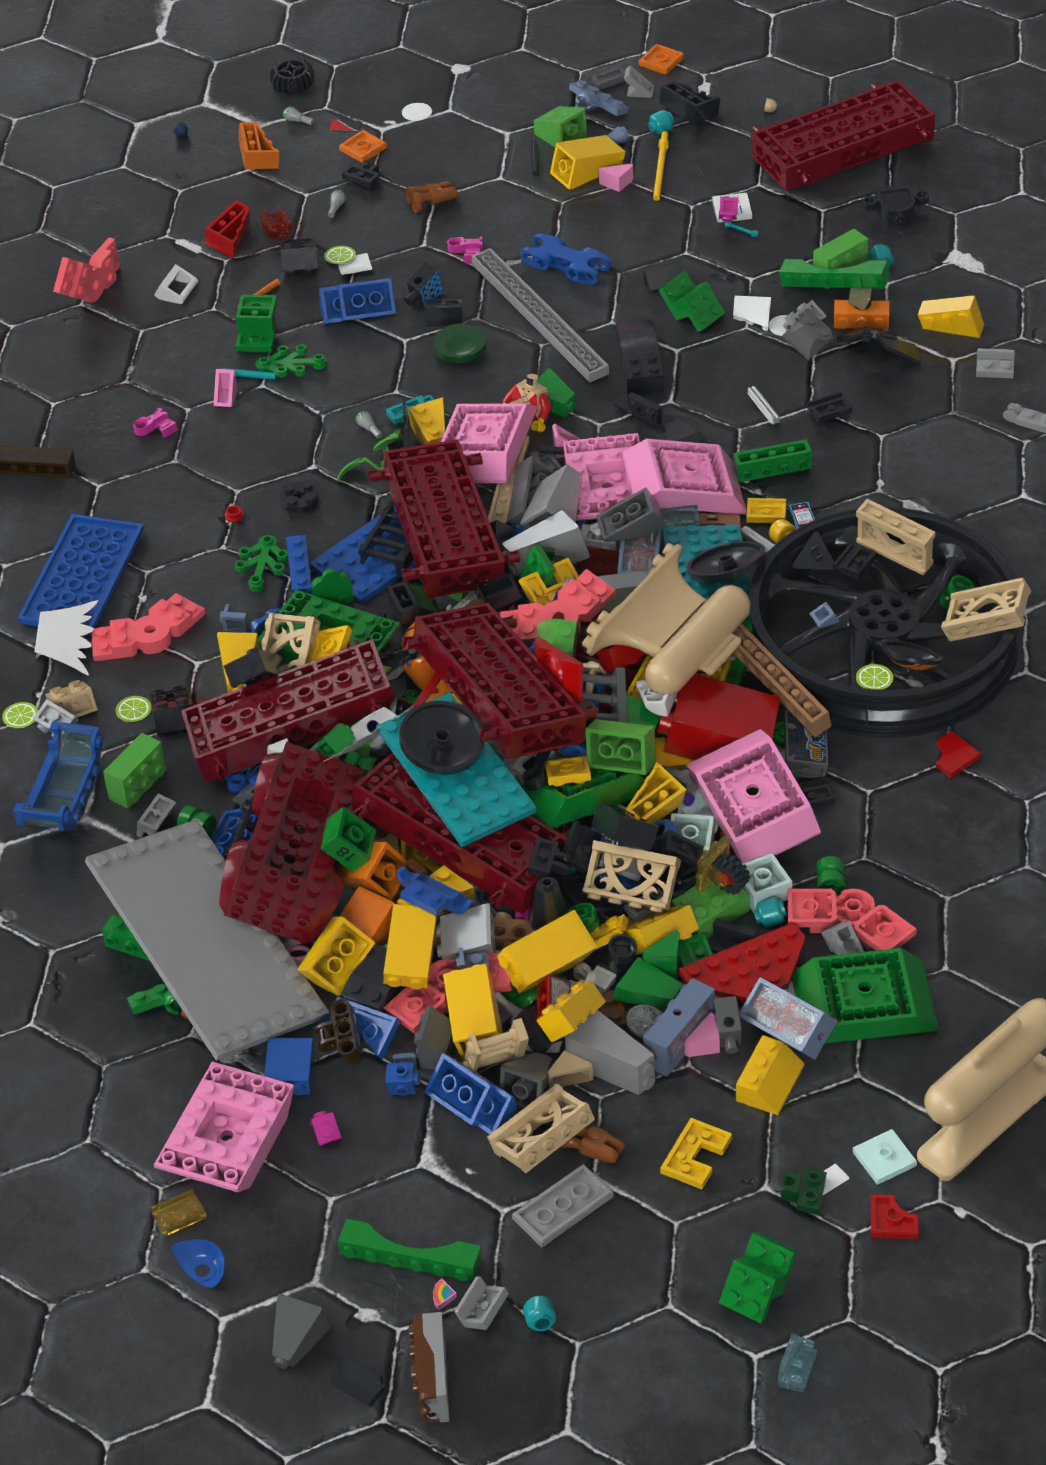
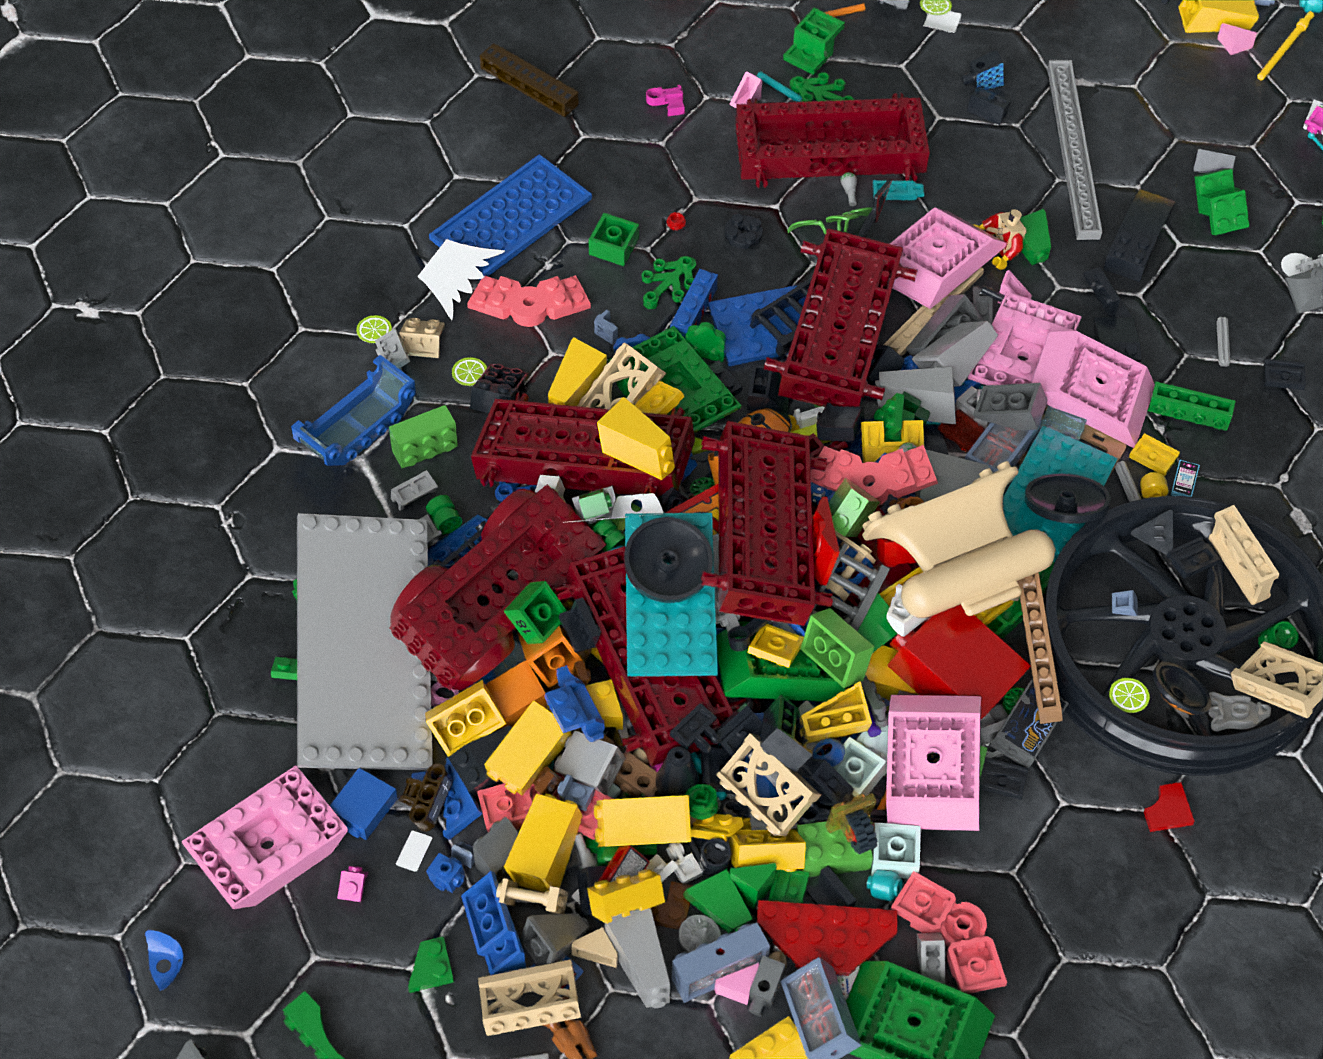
camera: 25 degrees right, 10 degrees up
(178, 1212) = (180, 896): clear yellow plate -> none
(190, 549) = (613, 239): none -> green brick
(254, 667) = (579, 392): black wedge -> none
(325, 392) = (831, 138): none -> dark red piece
(344, 671) = (635, 440): none -> yellow slope
(357, 300) = (917, 59): blue slope -> none
(358, 1081) = (414, 851): none -> white sticker
(394, 830) = (580, 626): none -> black bracket
(428, 421) = (903, 212): yellow wedge -> none
(438, 1153) = (431, 966): none -> green wing
(442, 963) = (547, 781): none -> reddish brown bracket
(459, 343) = (982, 144): dark green piece -> none
(462, 245) = (1052, 47): dark pink piece -> none
(574, 262) = (1140, 110): blue piece -> none
(752, 310) = (1276, 237): white slope -> none
(831, 874) = (964, 878): green wheel -> none
(964, 655) = (1236, 712): none -> light grey tile

